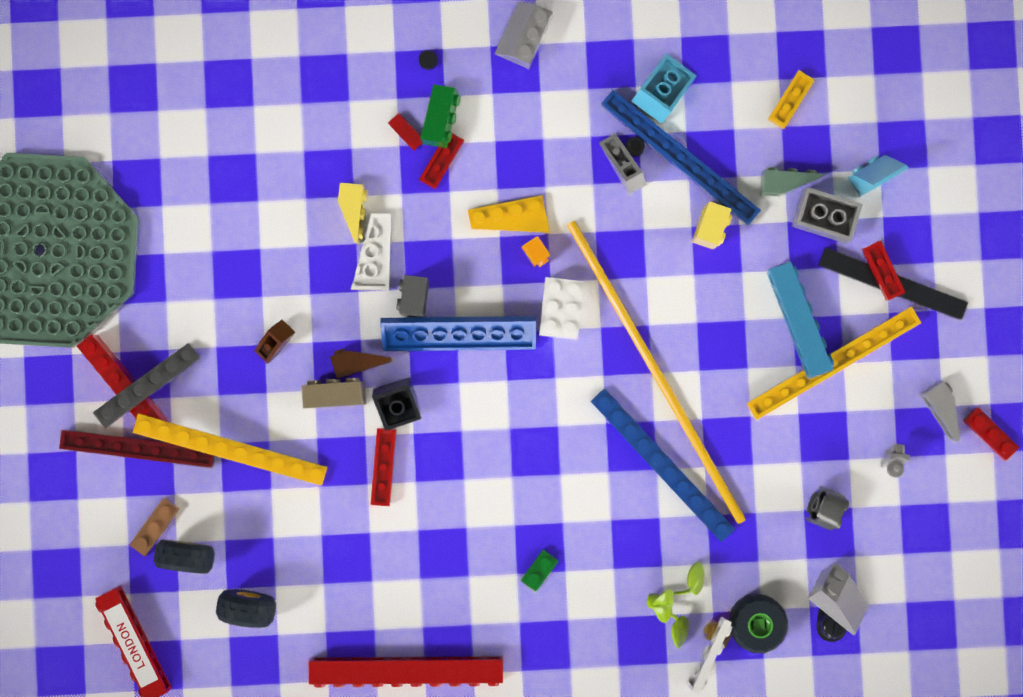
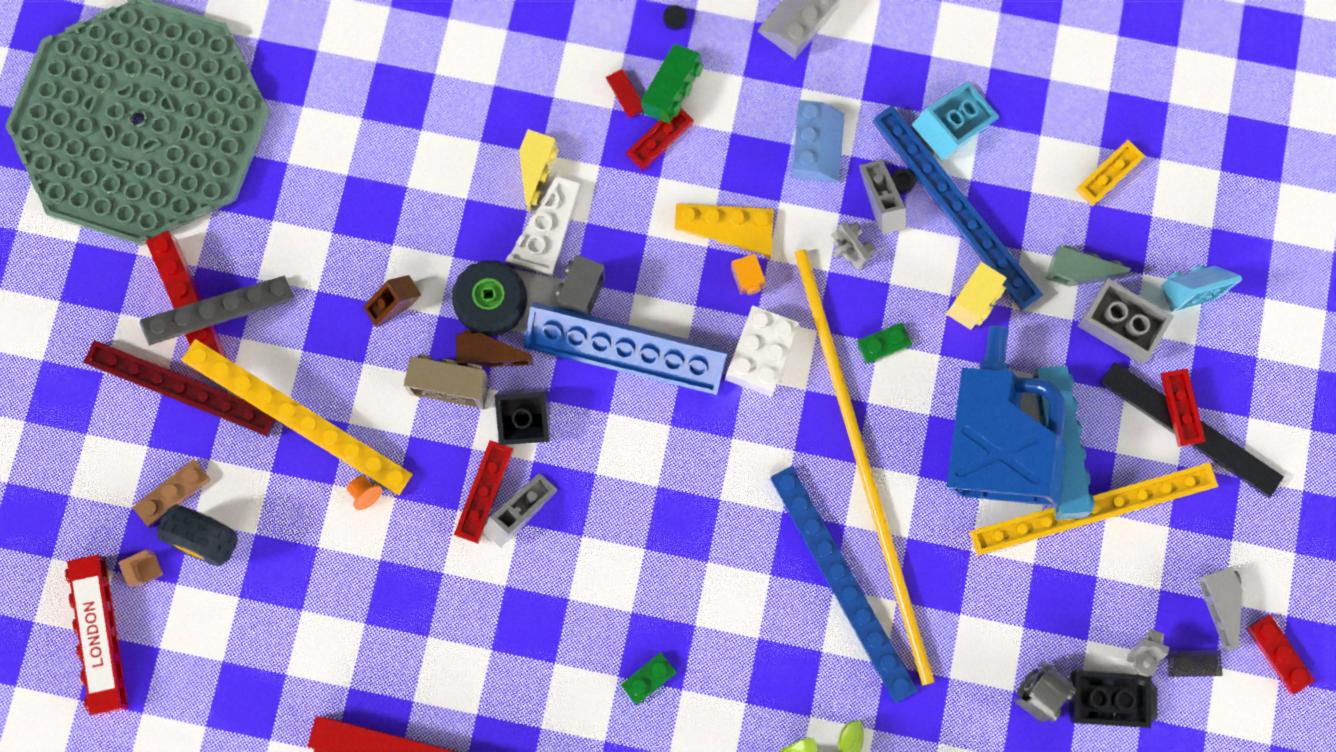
camera: 15 degrees right, 10 degrees down
(149, 588) = (140, 568): none -> medium nougat panel
(245, 608) = (255, 623): black wheel -> none
(295, 490) = (363, 492): none -> orange piece
(347, 321) = (489, 298): none -> black wheel
(413, 473) = (519, 510): none -> light grey slope
(563, 133) = (817, 142): none -> medium blue slope
(607, 210) = (850, 246): none -> light grey hips
(650, 277) = (884, 343): none -> green plate
(752, 336) = (998, 446): none -> blue piece
(877, 500) = (1112, 699): none -> black slope
(930, 457) = (1194, 663): none -> clear smoke plate

